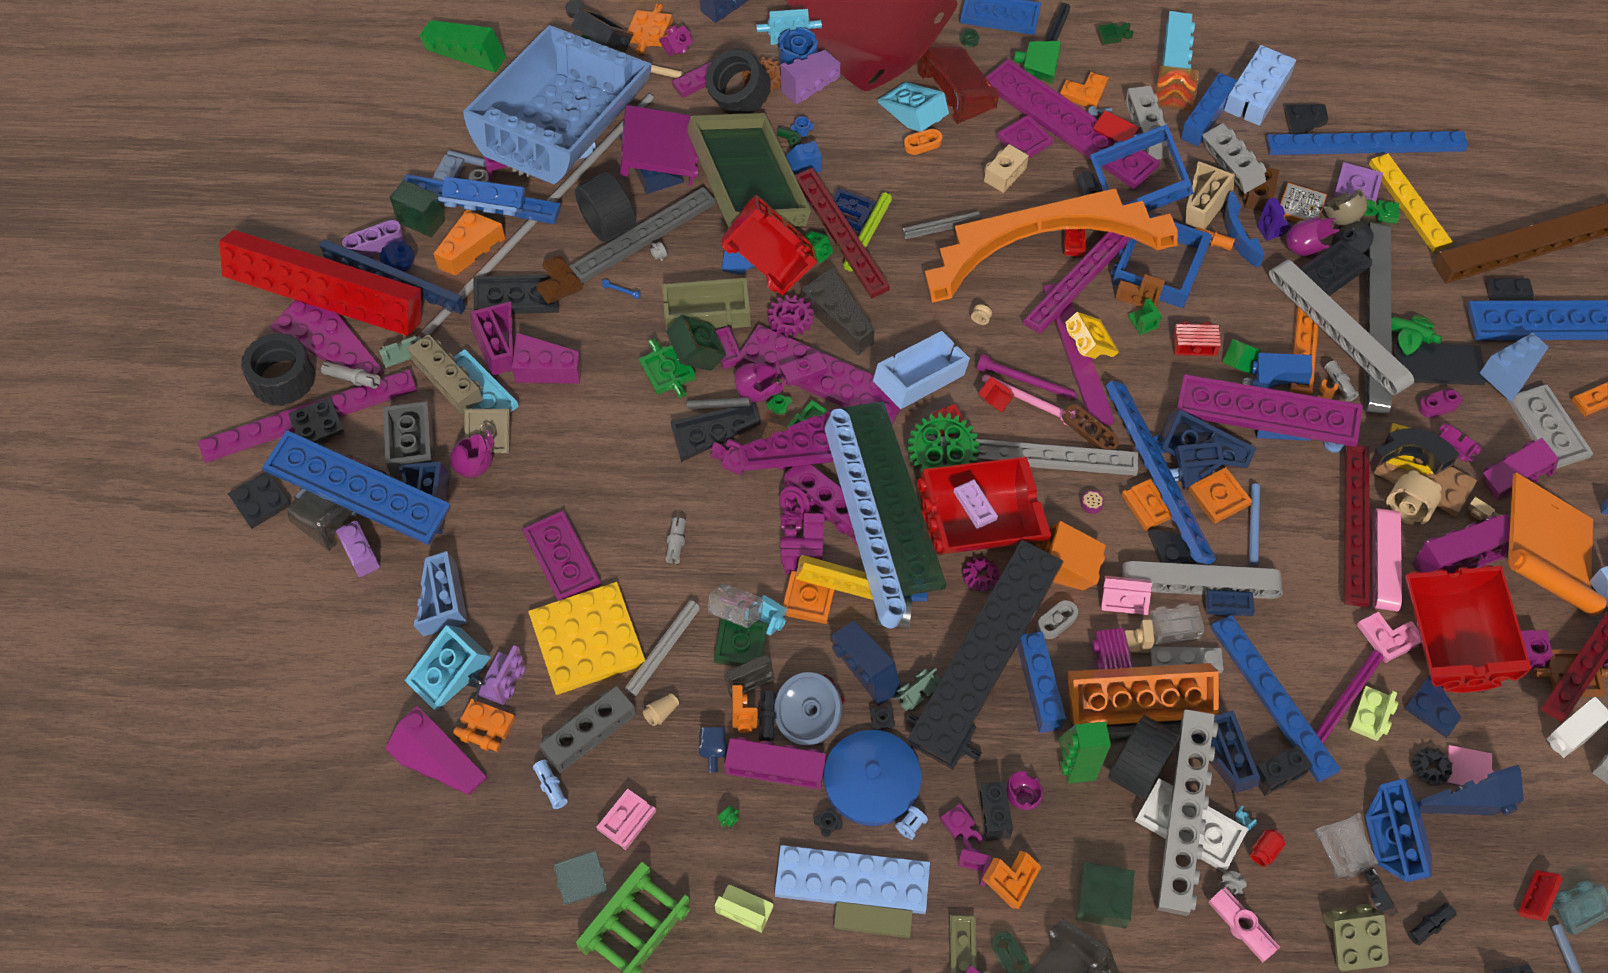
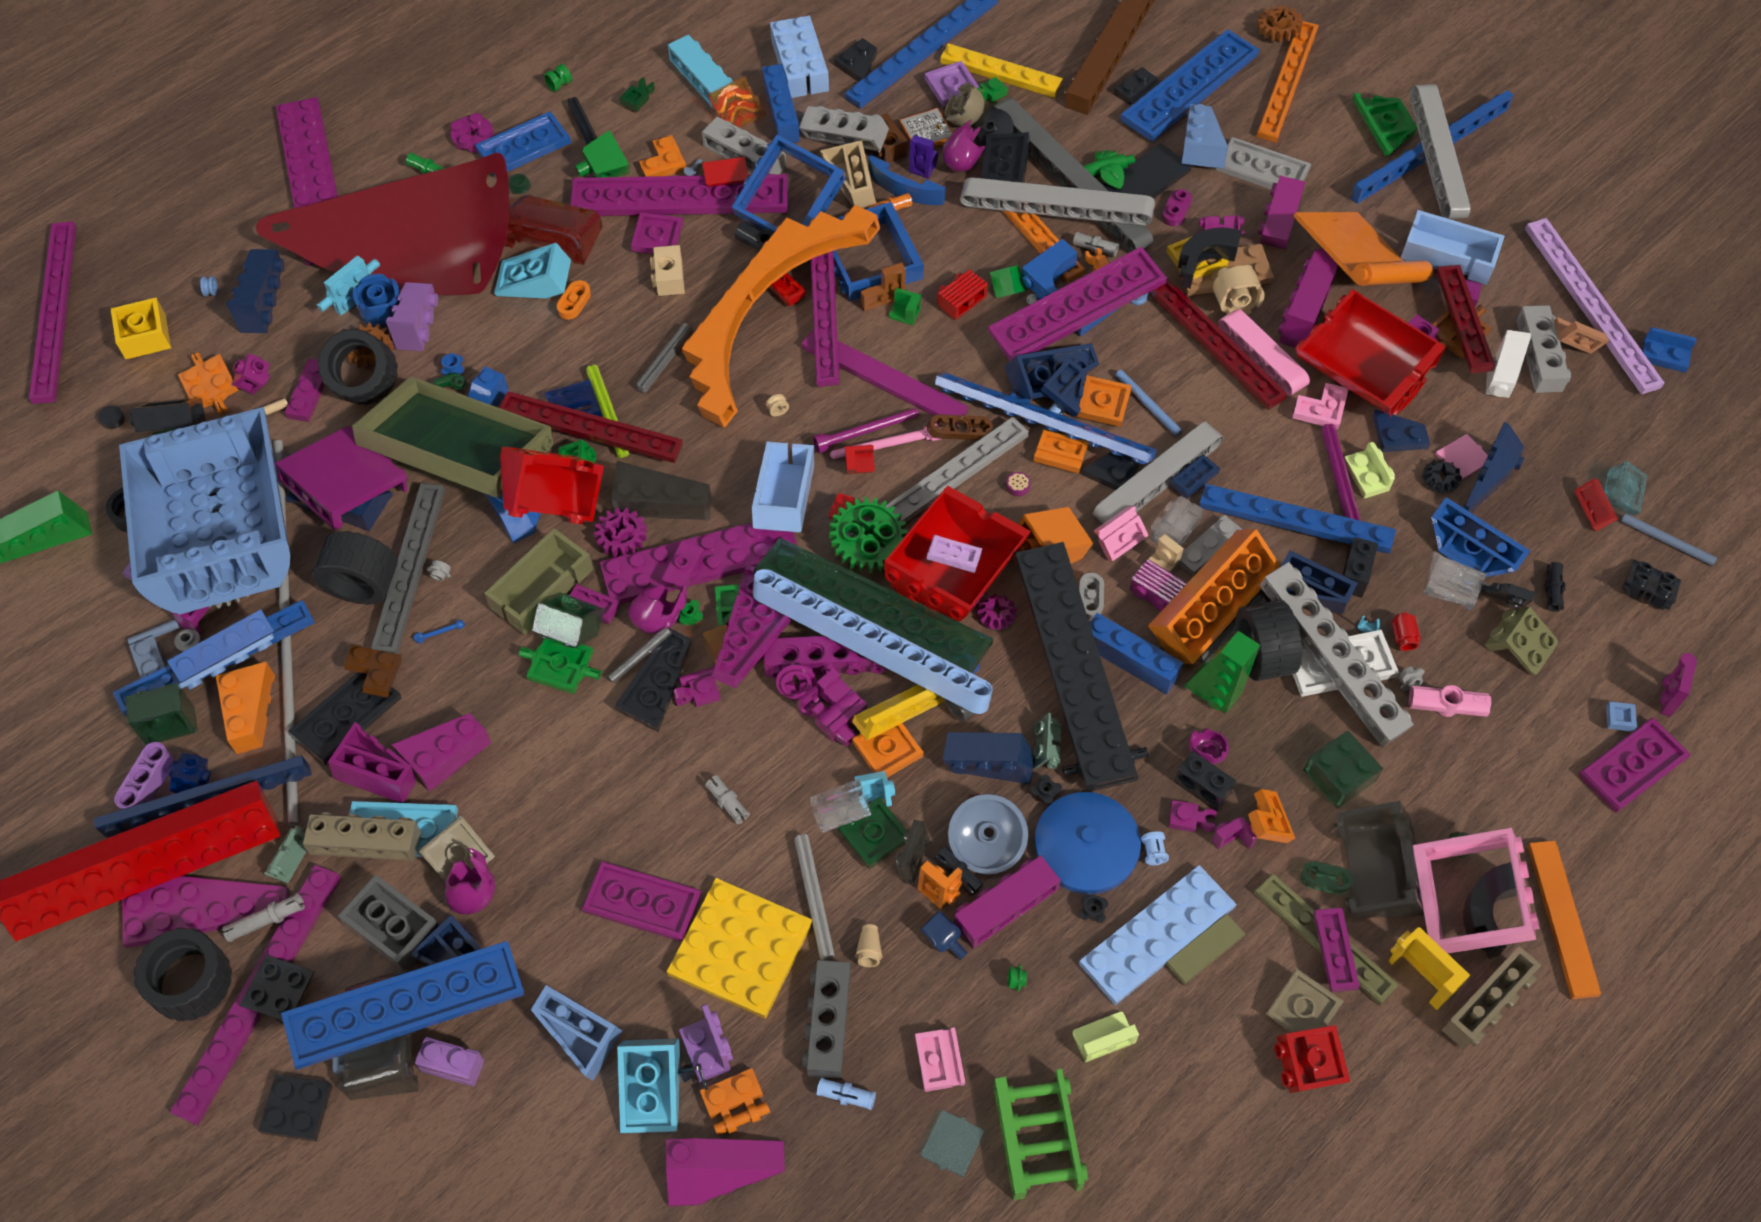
camera: 45 degrees left, 0 degrees up
(1090, 336) = (883, 354): yellow plate -> none
(1481, 510) = (1288, 263): tan plate -> none

